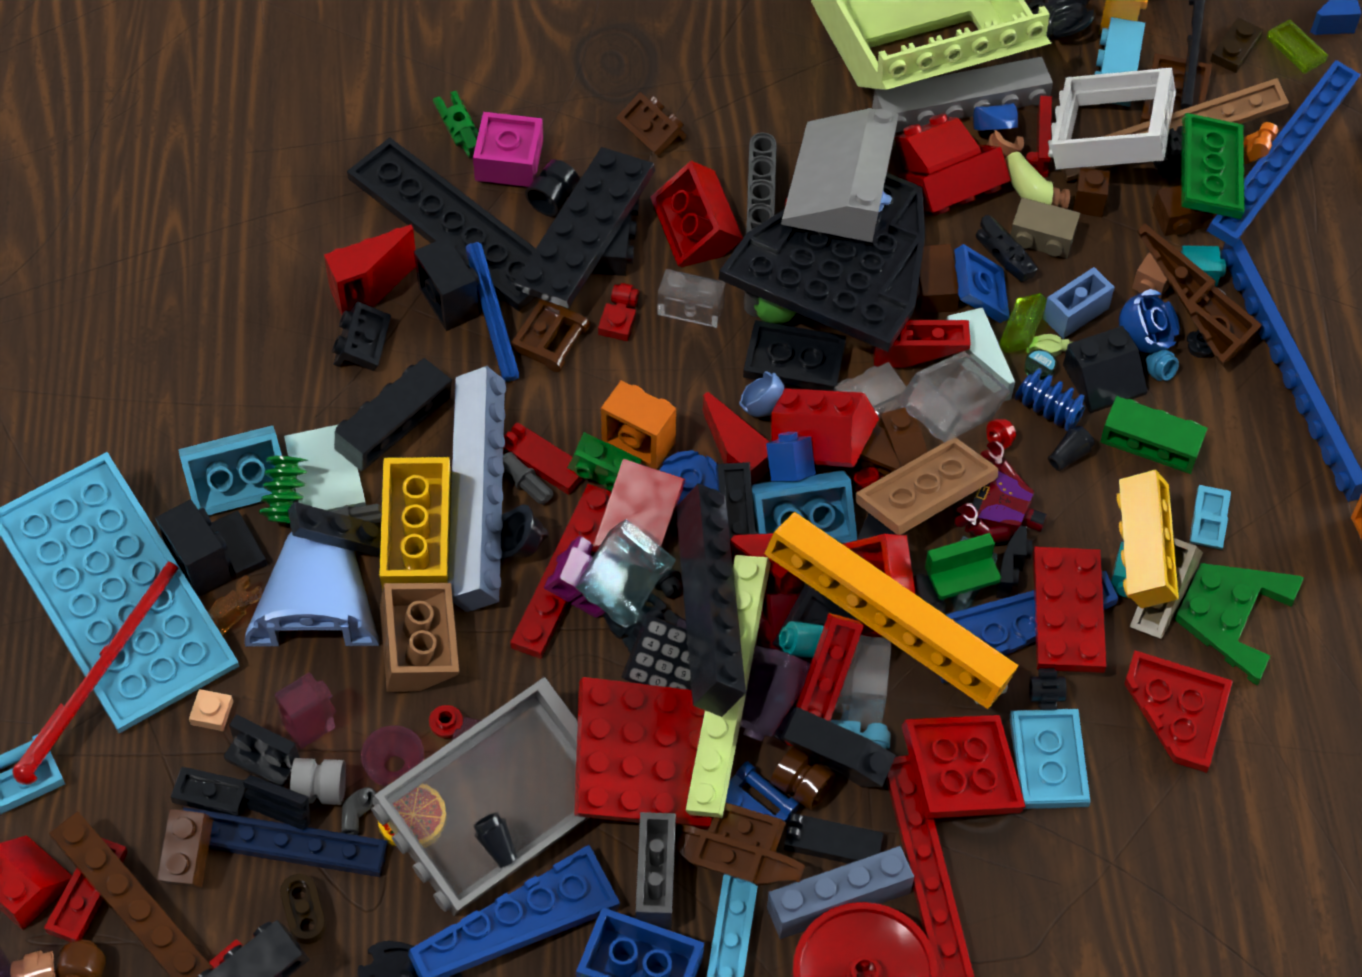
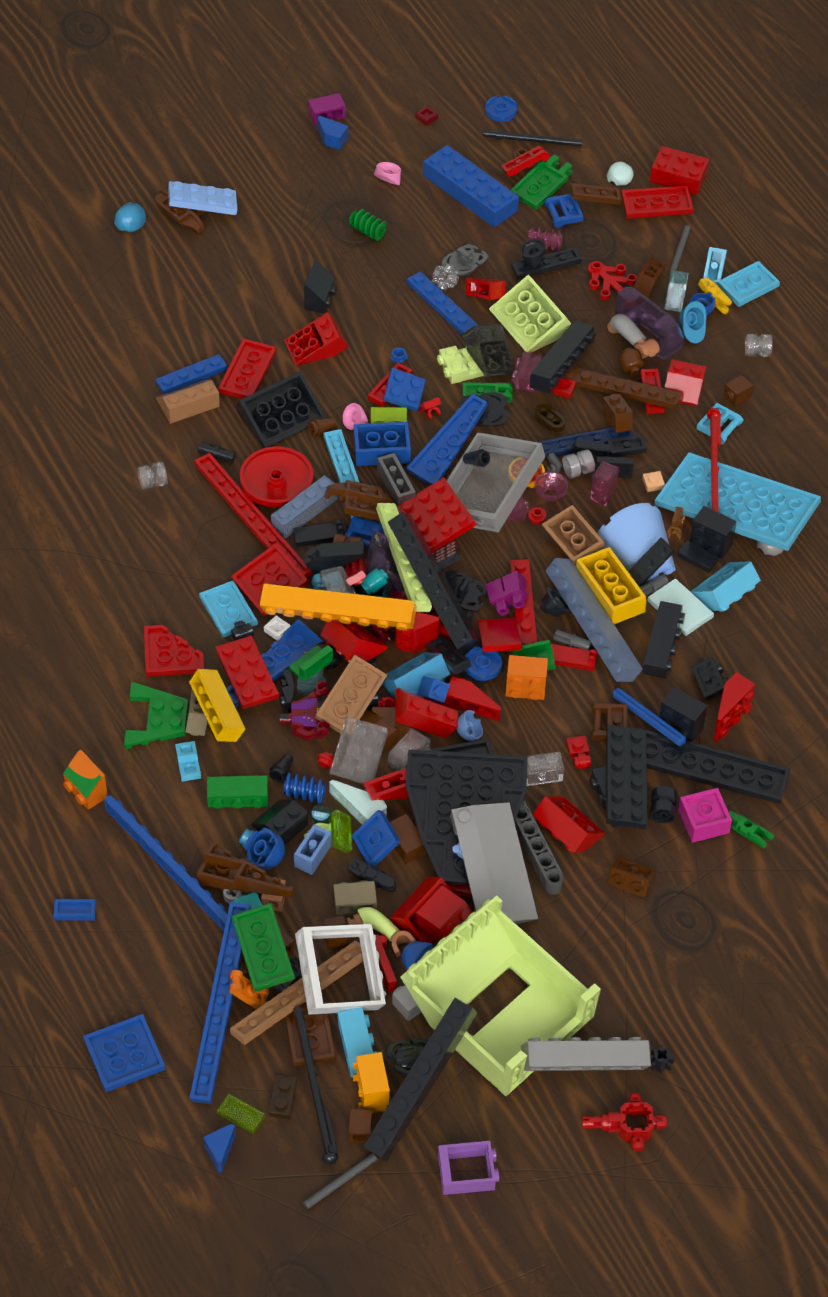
camera: 155 degrees right, 5 degrees down
(282, 487) = (689, 575): green piece -> none
(624, 573) = (488, 594): clear light blue panel -> none

